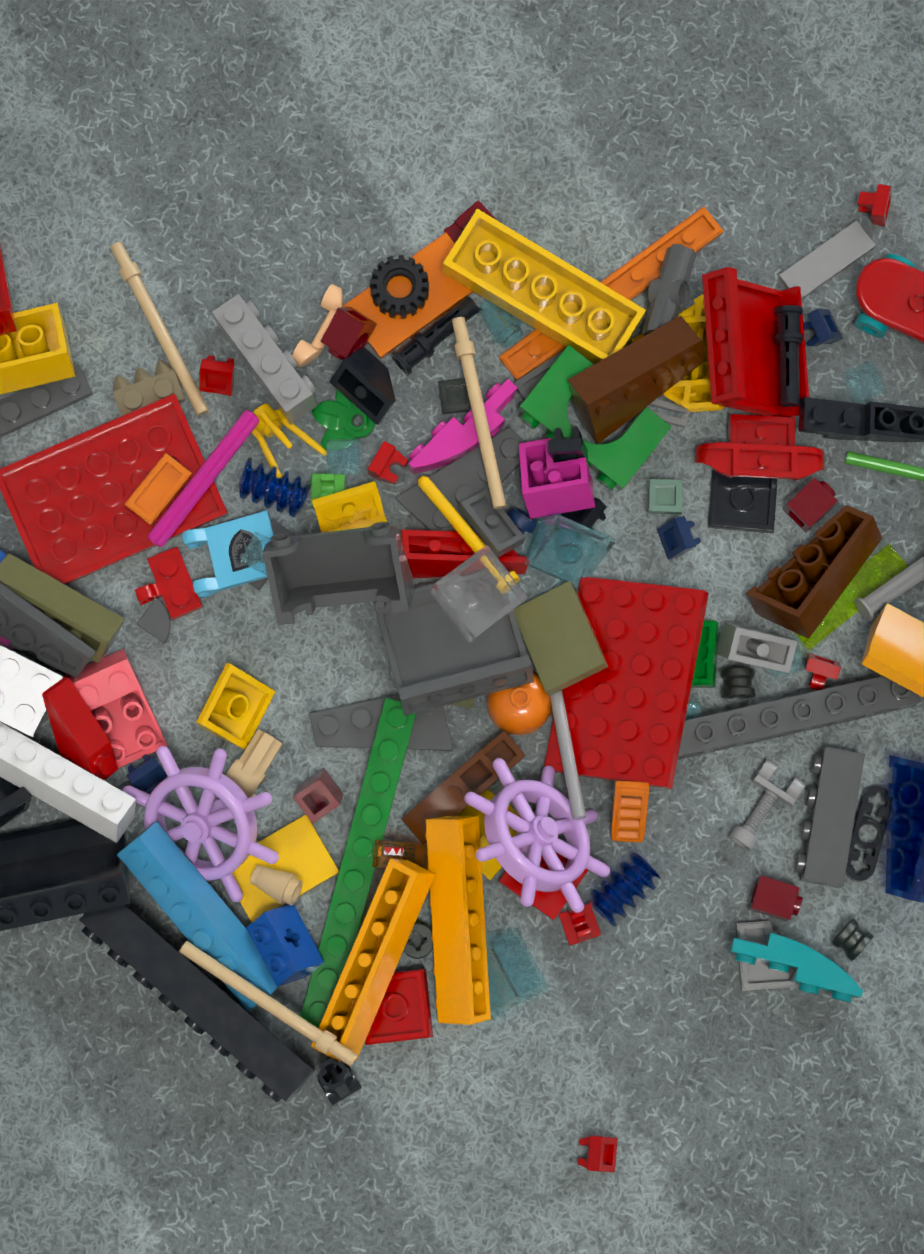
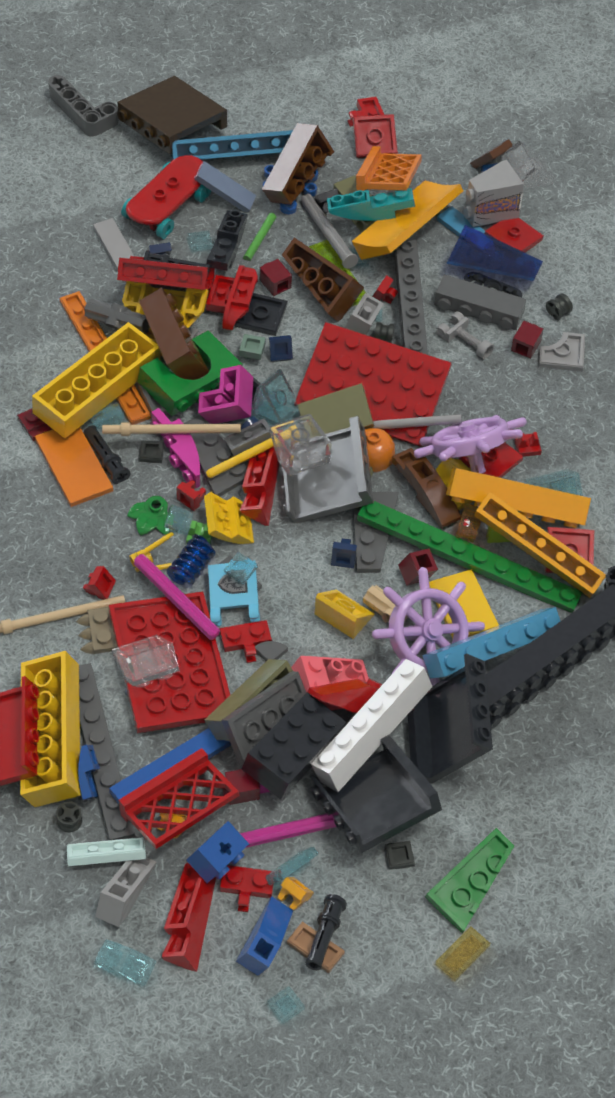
camera: 80 degrees left, 25 degrees down
(87, 458) = (146, 660): none -> clear slope
(147, 775) = (383, 667): dark blue tile -> none
(158, 489) = (177, 626): orange tile -> none
(264, 359) = (97, 548): light grey brick -> none
(277, 884) = (477, 599): tan cone -> none
(285, 945) = (519, 601): blue brick -> none
(306, 352) = (68, 506): light nougat bar -> none
(324, 1041) = (592, 577): tan bar -> none
(328, 690) = (343, 554): none -> dark blue tile
(338, 570) = (265, 513): dark grey windscreen -> none
(347, 332) = (93, 498): dark red brick -> none
(365, 384) = (133, 491): black slope -> none
(394, 268) = (66, 452): black tyre -> none
(567, 449) = (212, 378): black tile -> none
(623, 888) = (505, 407): clear blue piece -> none
(629, 813) = (459, 398): orange slope -> none
(810, 967) = (573, 329): teal slope -> none
(876, 204) = (86, 210): red tile -> none

